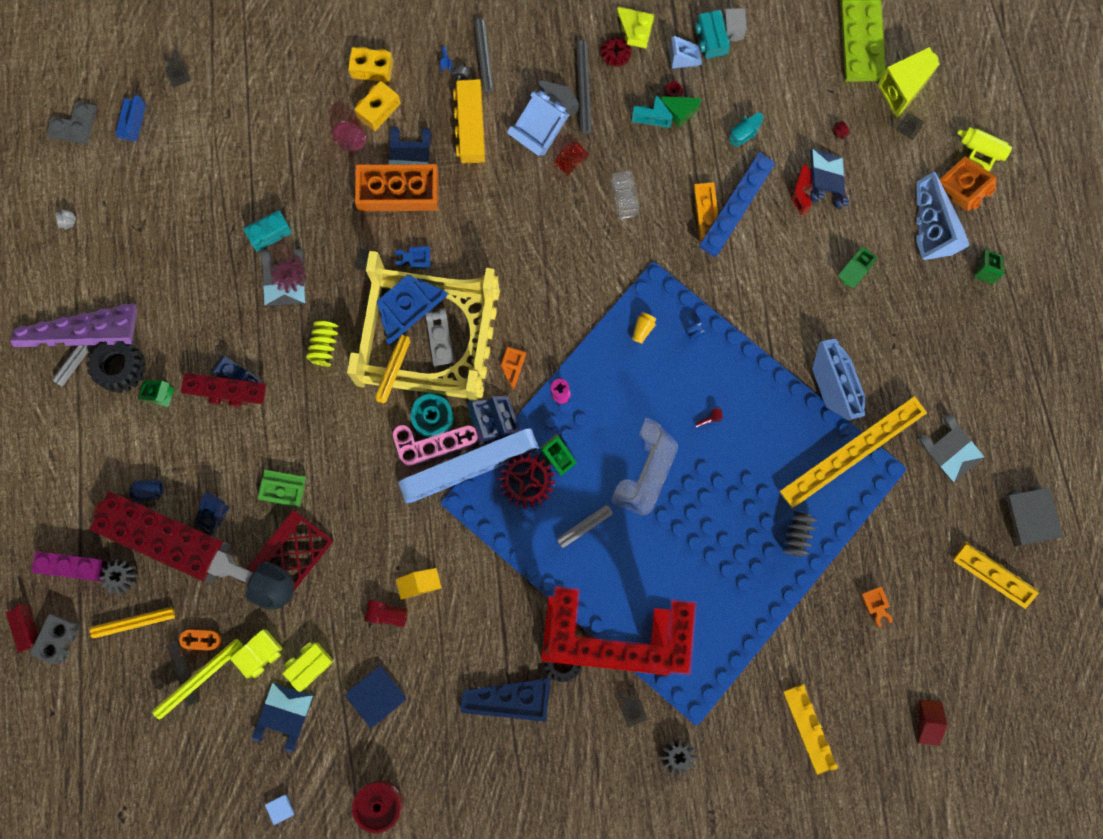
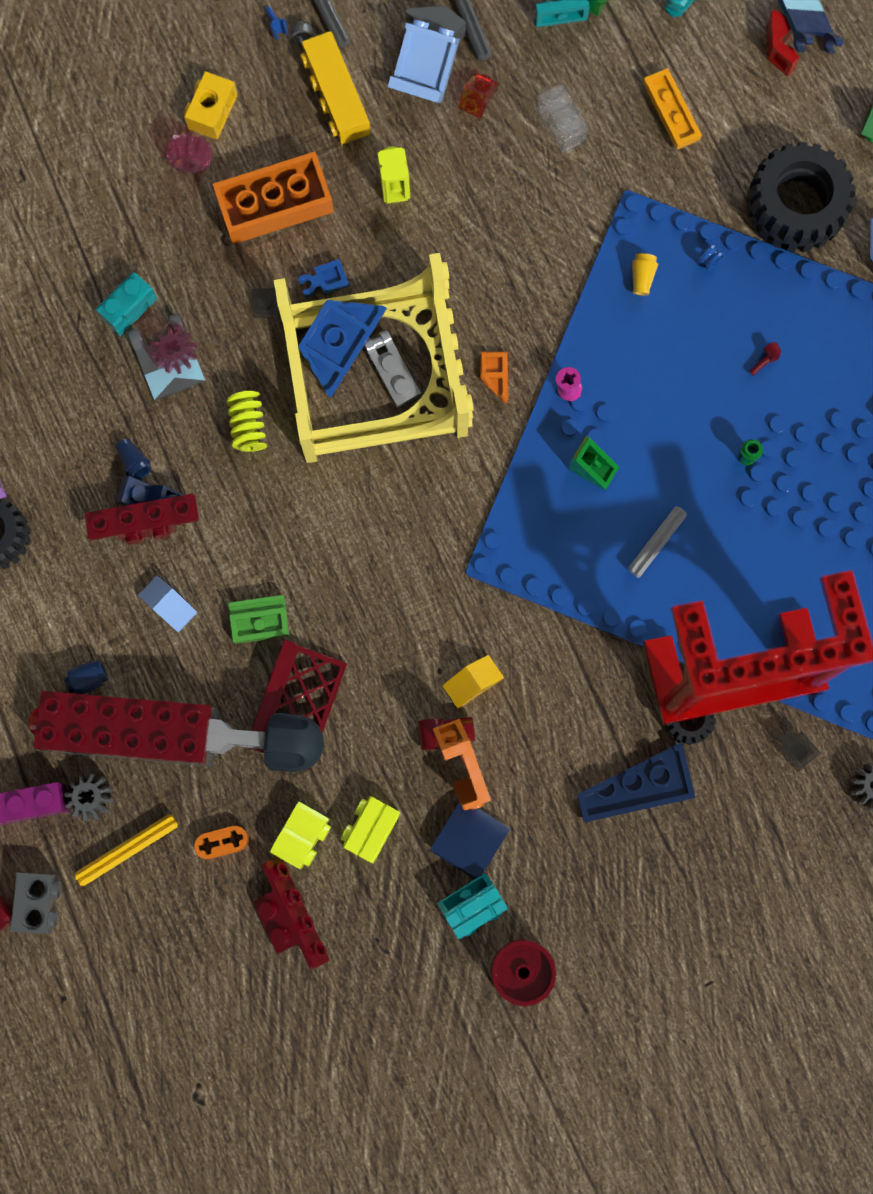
camera: 15 degrees left, 0 degrees up
(156, 392) = (54, 551): green slope -> none
(181, 669) = (212, 889): clear smoke pin -> none
(197, 679) = (237, 891): neon yellow axle -> none
(211, 513) = (179, 678): dark blue slope -> none
(222, 455) = (167, 603): none -> light blue slope
(227, 709) = (287, 917): none -> dark red bracket
(233, 344) = (133, 460): none -> dark blue cone
(280, 809) = (398, 1020): light blue tile -> none
(284, 712) = (360, 897): dark blue flag -> none
(359, 746) = (472, 906): none -> teal brick
(369, 69) = (184, 63): yellow brick -> none
(385, 625) = (455, 742): none -> orange panel
(392, 369) = (348, 424): yellow axle -> none
(409, 152) = (271, 149): dark blue flag -> none
(432, 404) = (418, 452): teal brick -> none
(437, 441) = (434, 497): bright pink beam -> none
(467, 466) = (485, 514): light blue beam -> none
(488, 198) = (394, 174): none -> neon yellow brick
(493, 418) = (496, 445): dark blue slope -> none
(518, 476) = (555, 508): dark red gear -> none
(643, 495) = (713, 479): clear windscreen -> none
(675, 478) = (750, 452): none -> green pin
(736, 205) = (706, 87): blue plate -> none
(787, 285) = (806, 165): none -> black tyre

